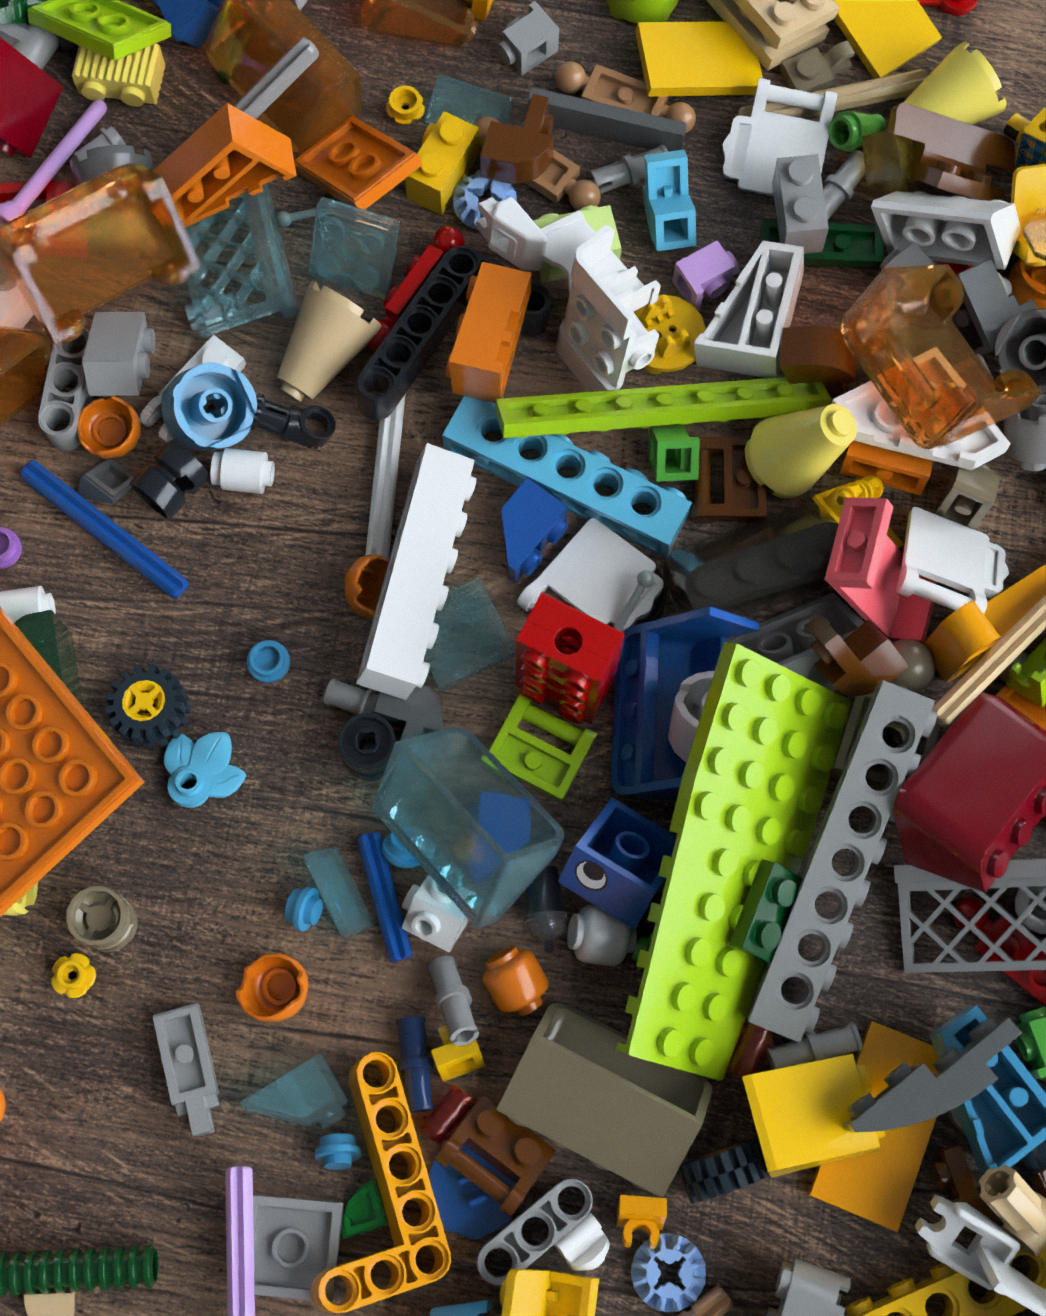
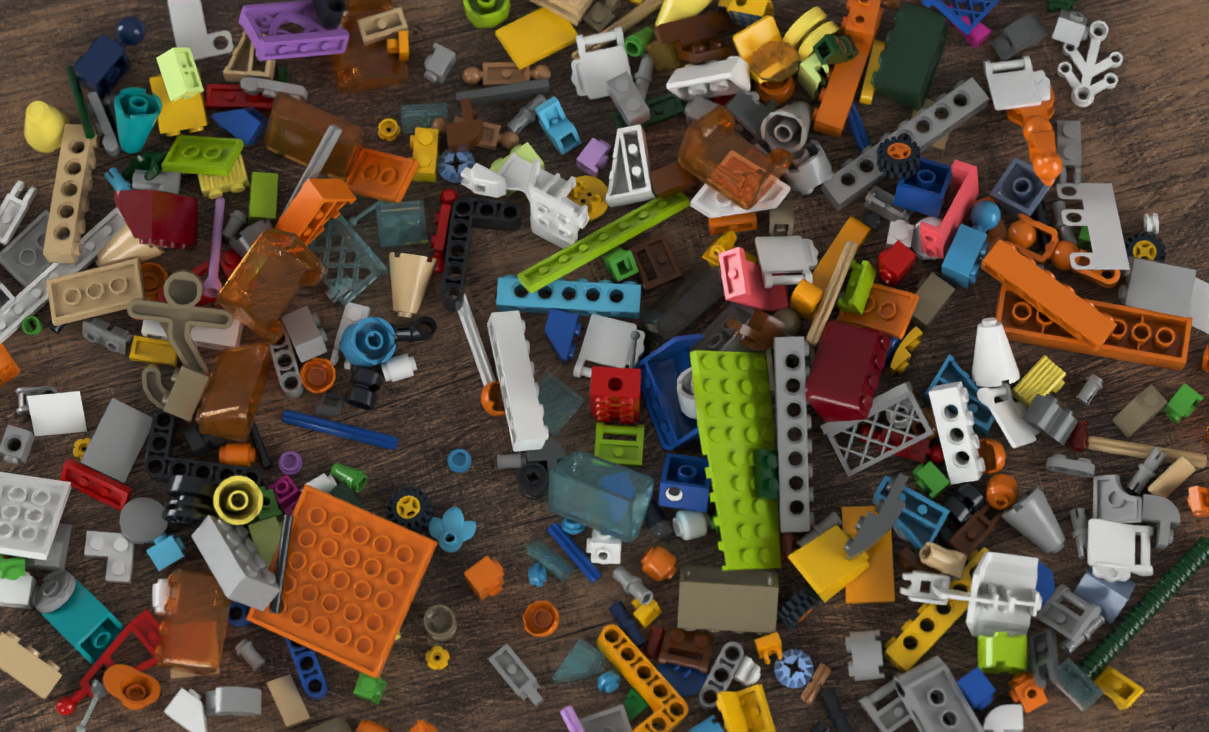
camera: 20 degrees left, 0 degrees up
(80, 612) = (354, 477): none -> bright green cone
(163, 120) = (262, 196): none -> lime hinge
(210, 876) = (485, 578): none -> orange brick
(488, 332) = (497, 240): orange wedge -> none
(798, 448) = (682, 233): light yellow cone -> none

